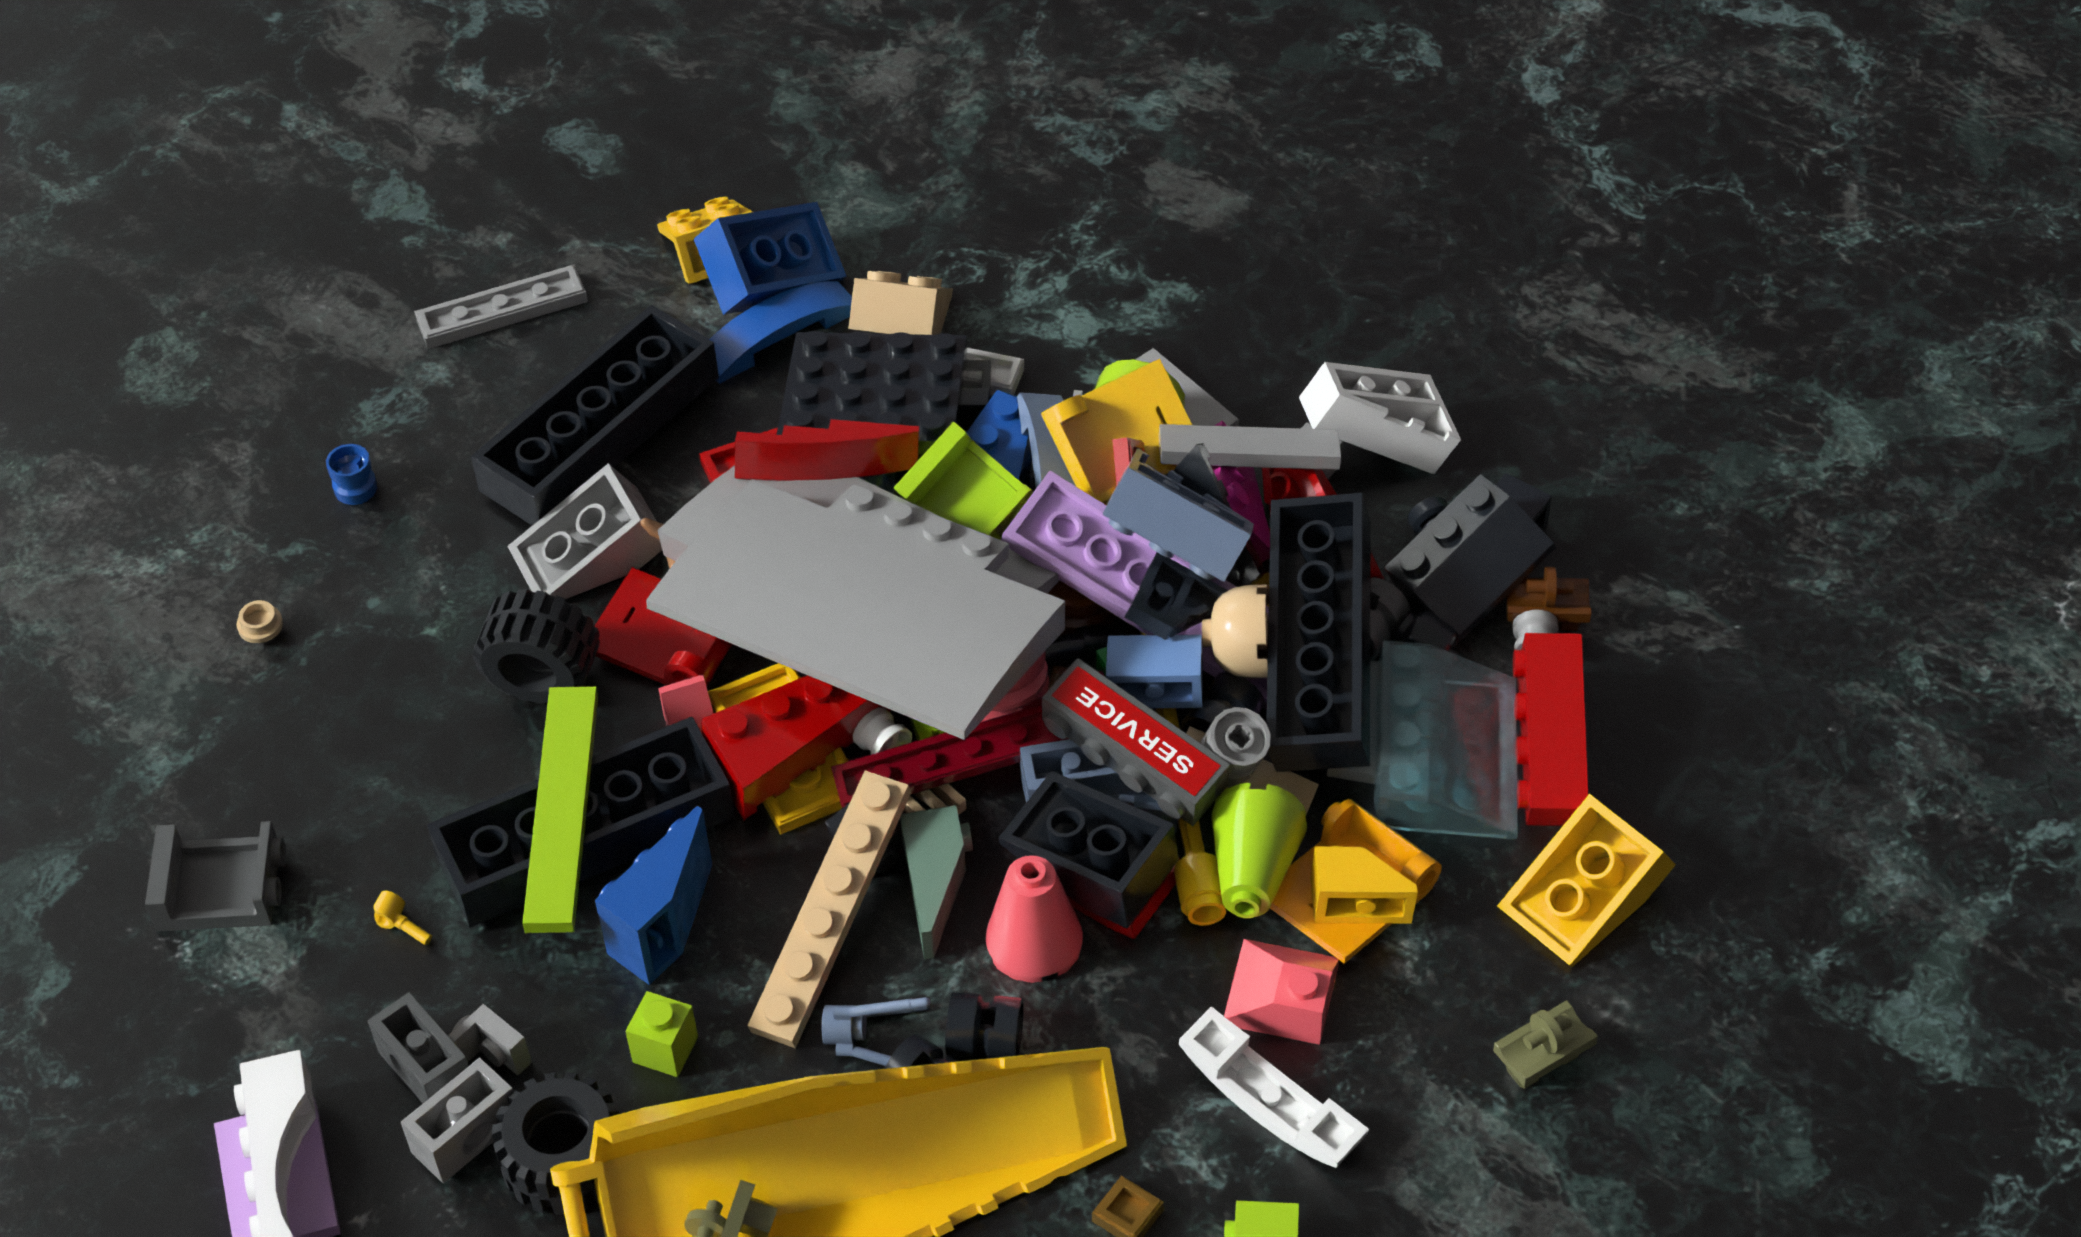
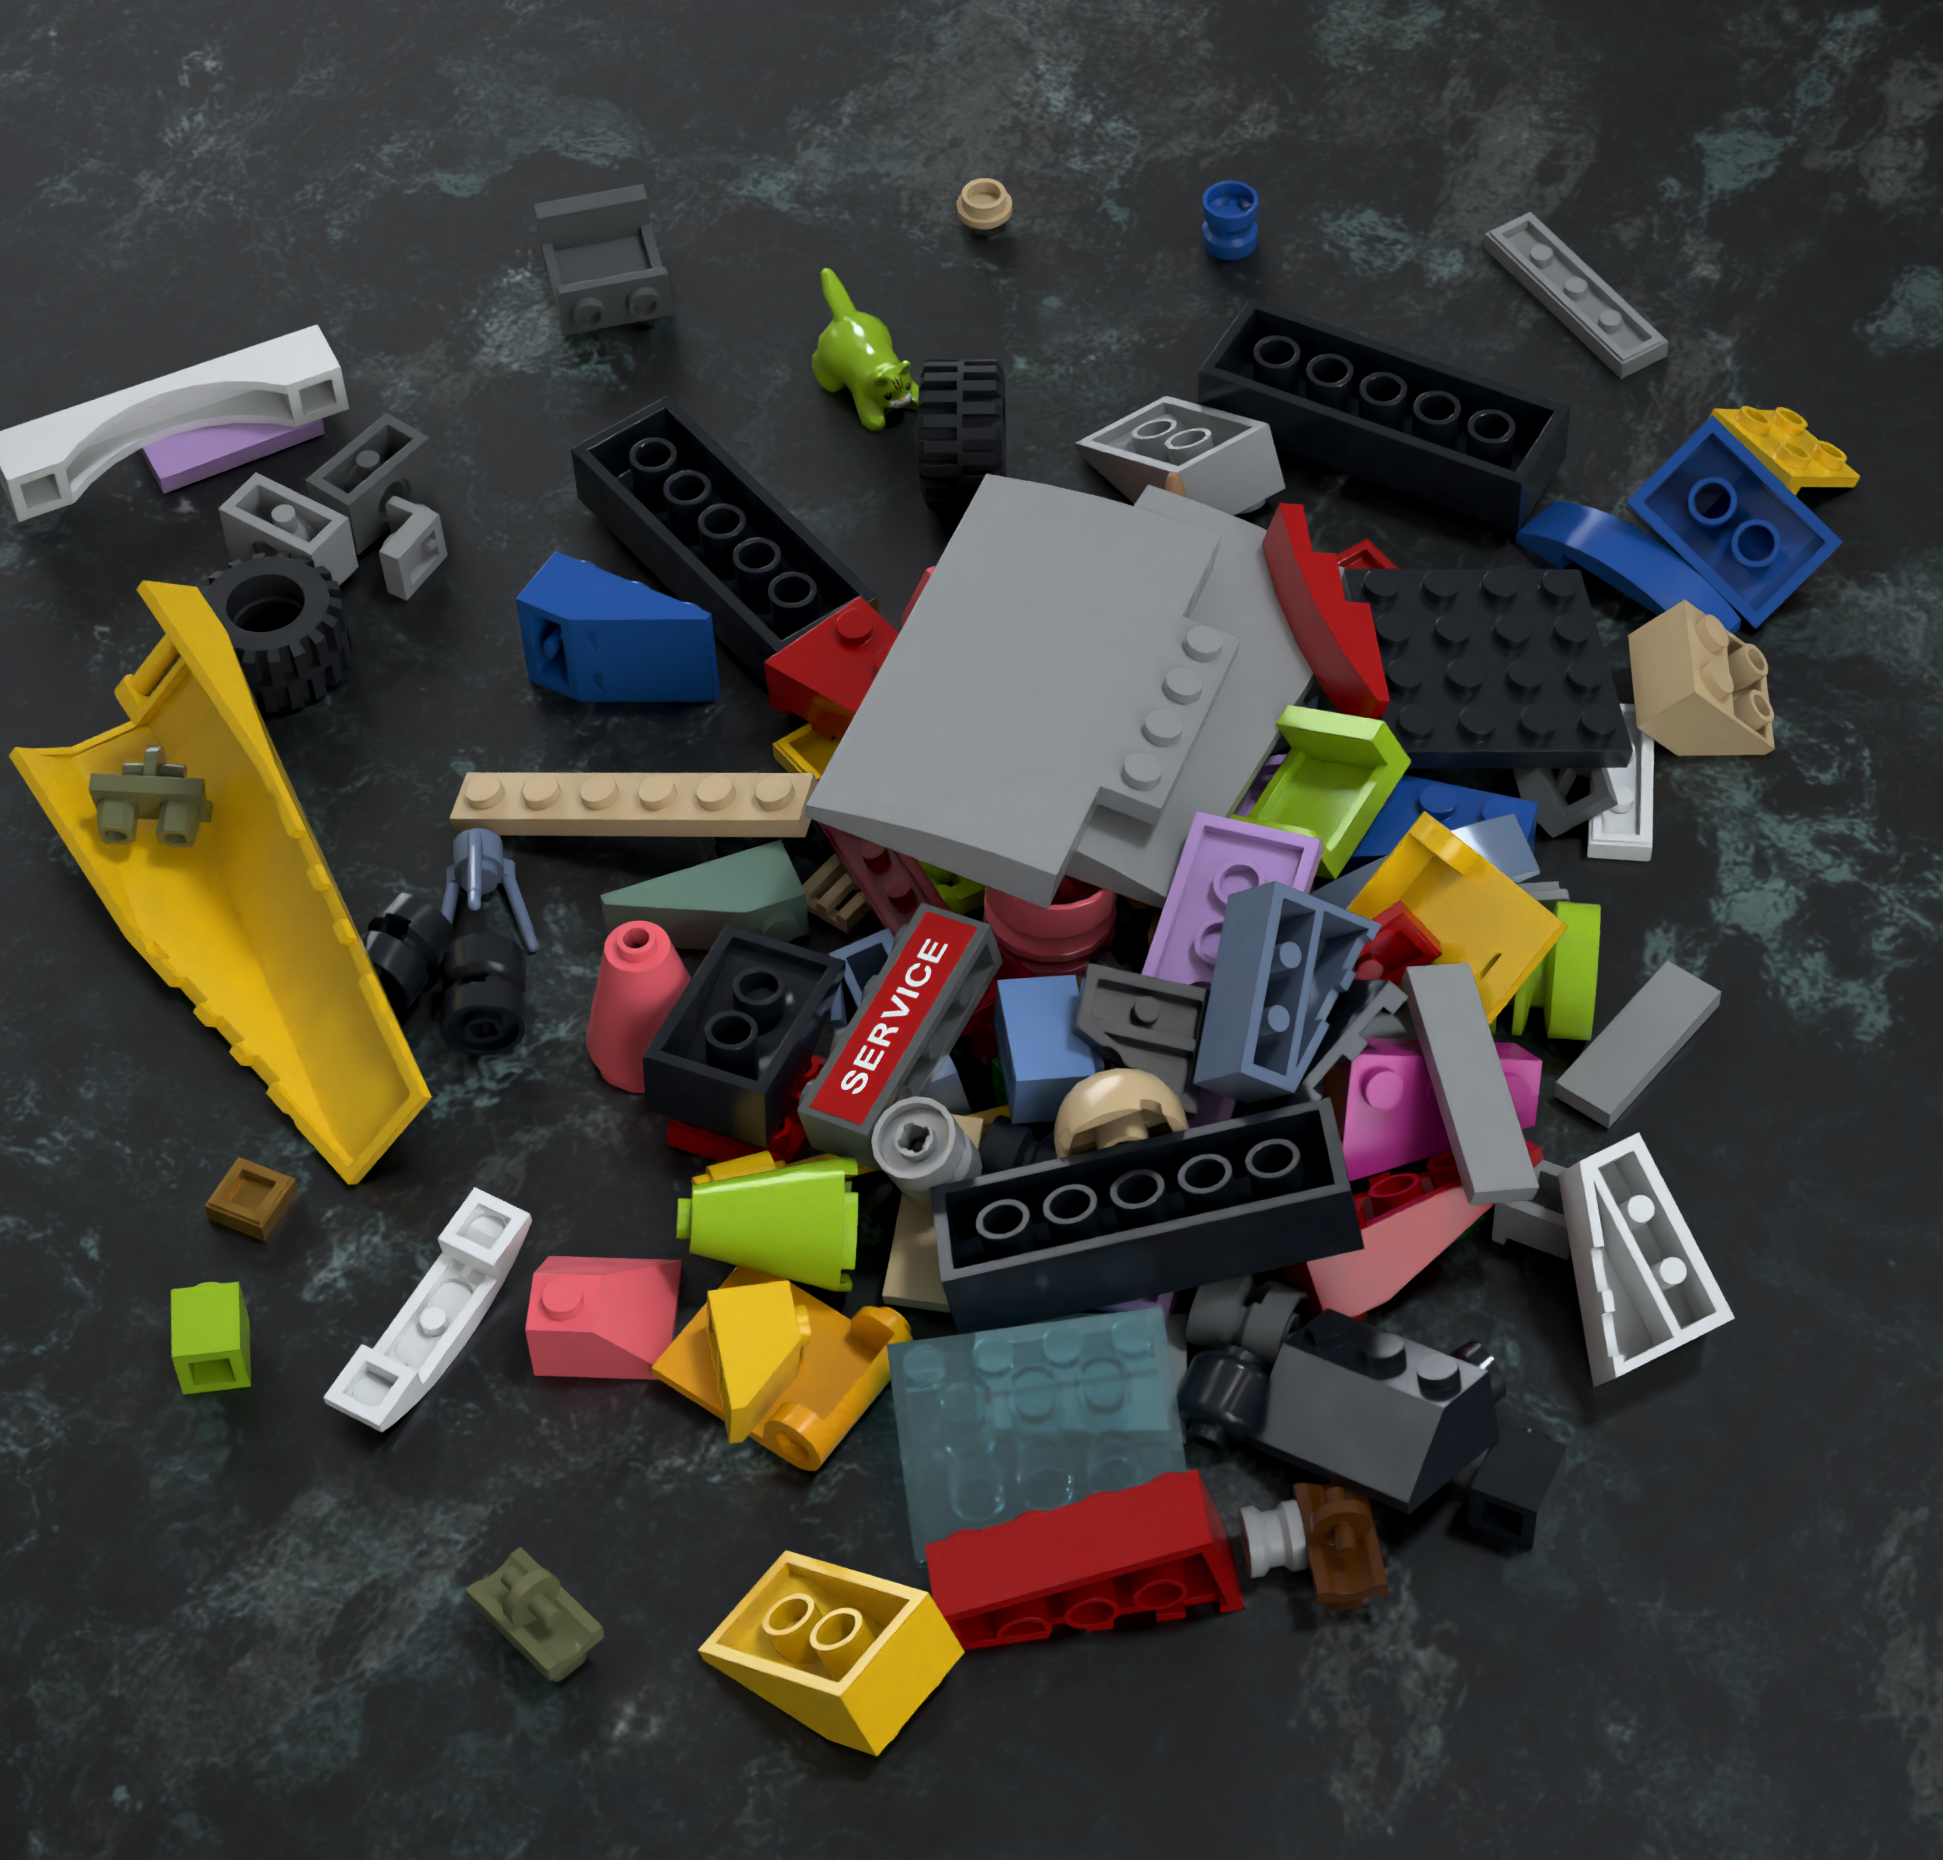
camera: 80 degrees right, 0 degrees up
(388, 914) = (583, 420): yellow hand -> none
(403, 715) = (860, 355): none -> lime animal
(560, 810) = (704, 500): lime tile -> none
(662, 1034) = (435, 691): lime brick -> none

